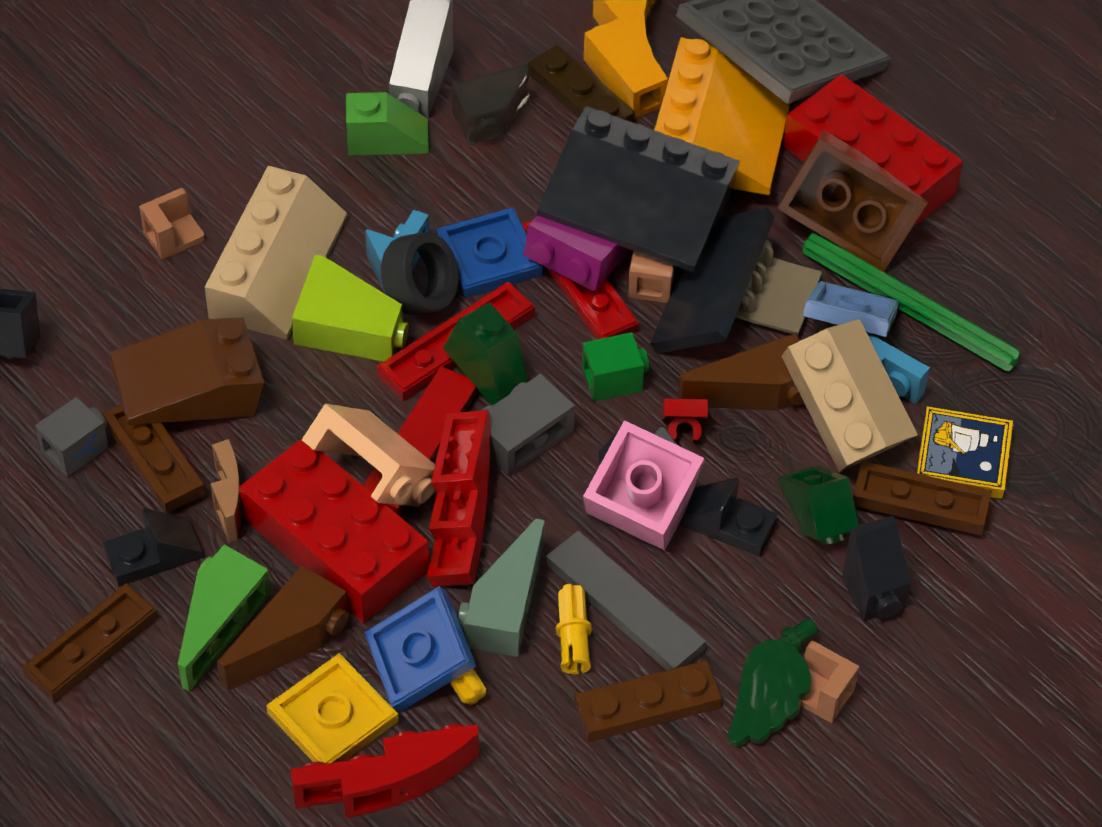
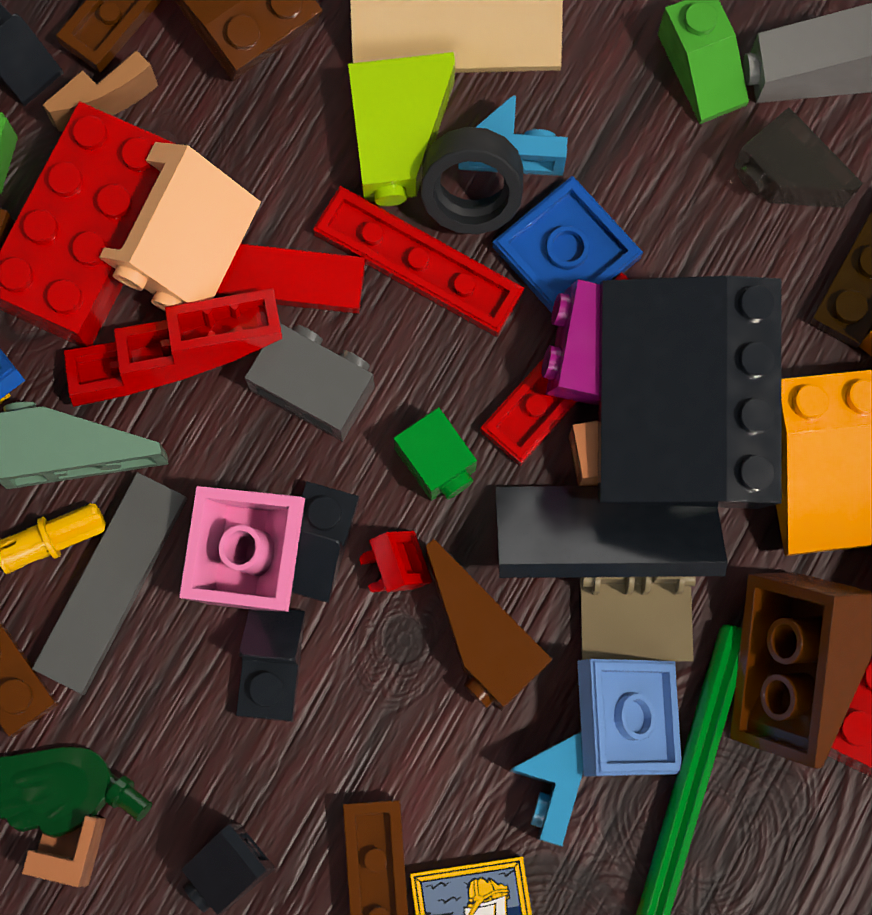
camera: 70 degrees right, 25 degrees up
(487, 352) = (382, 308): dark green slope -> none
(820, 503) = (322, 764): dark green slope -> none
(848, 394) = (472, 757): tan slope -> none

